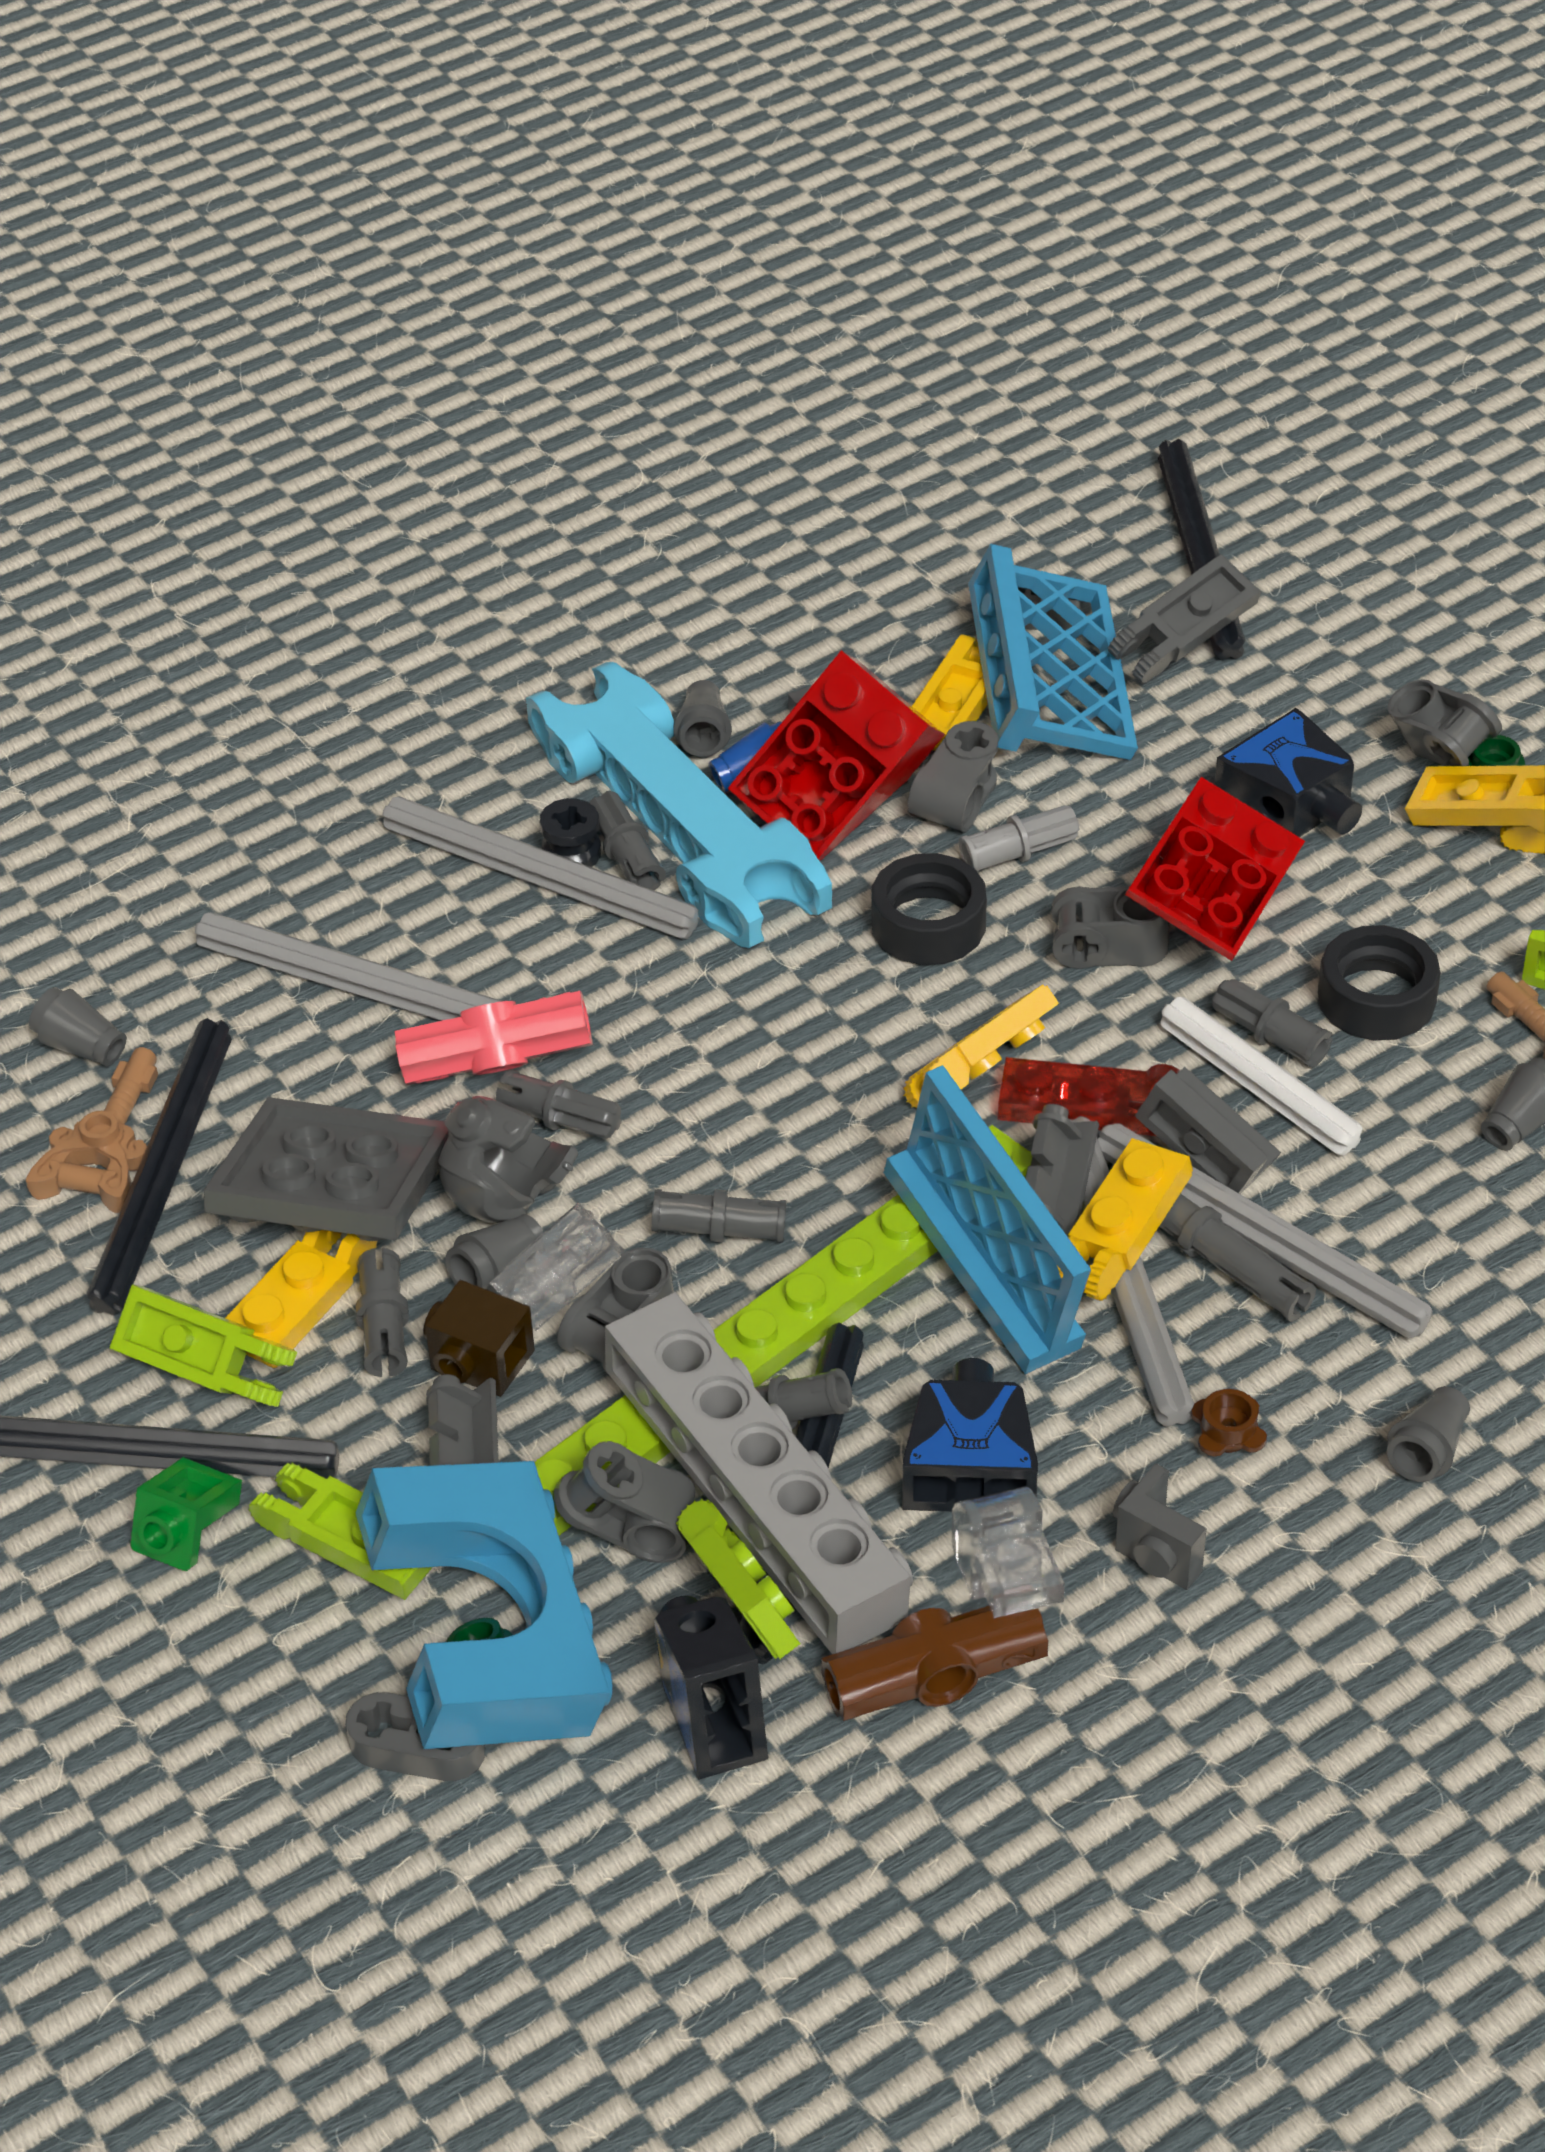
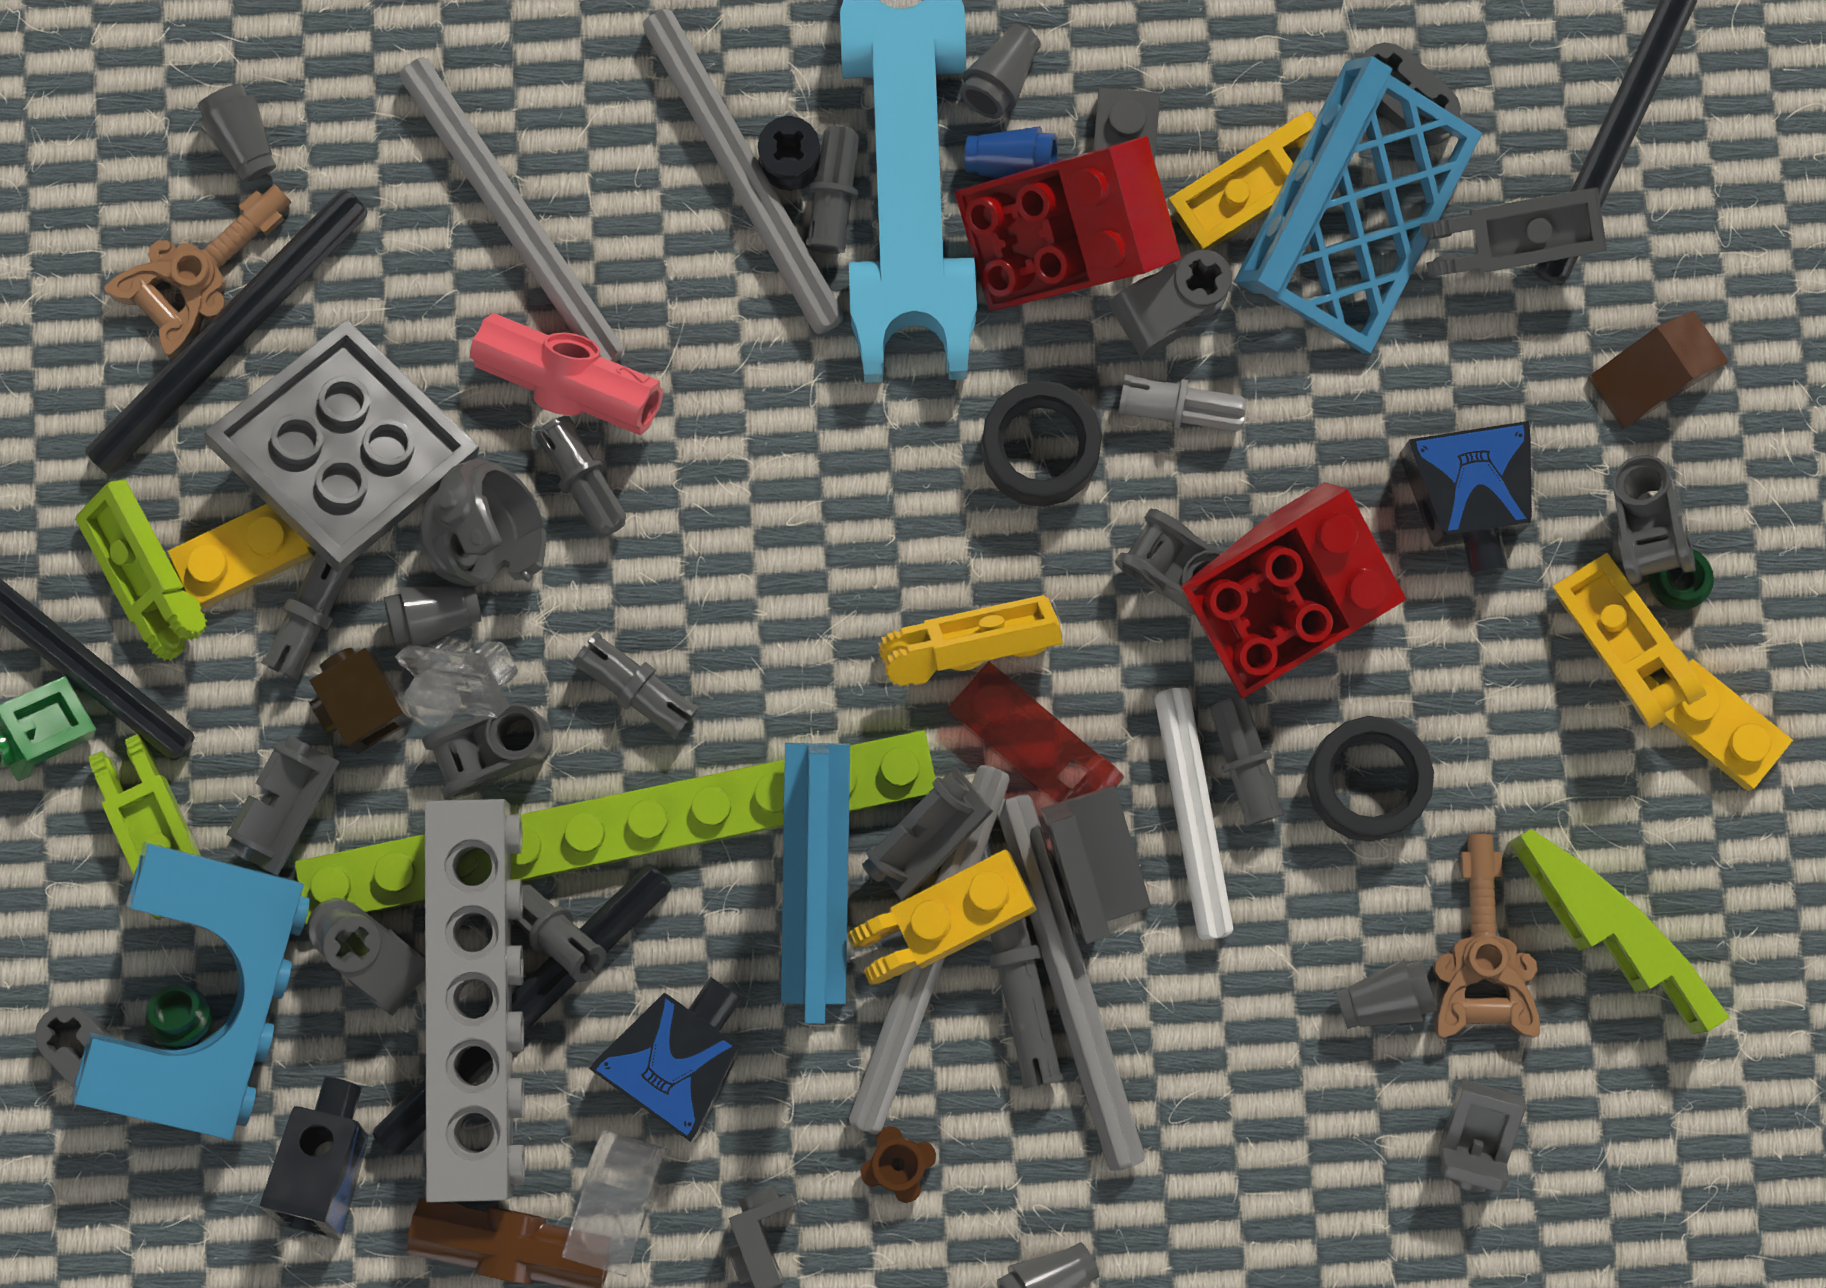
camera: 30 degrees right, 35 degrees up
(737, 1574) = (391, 1094): lime hinge -> none
(1357, 661) = (1657, 368): none -> reddish brown slope

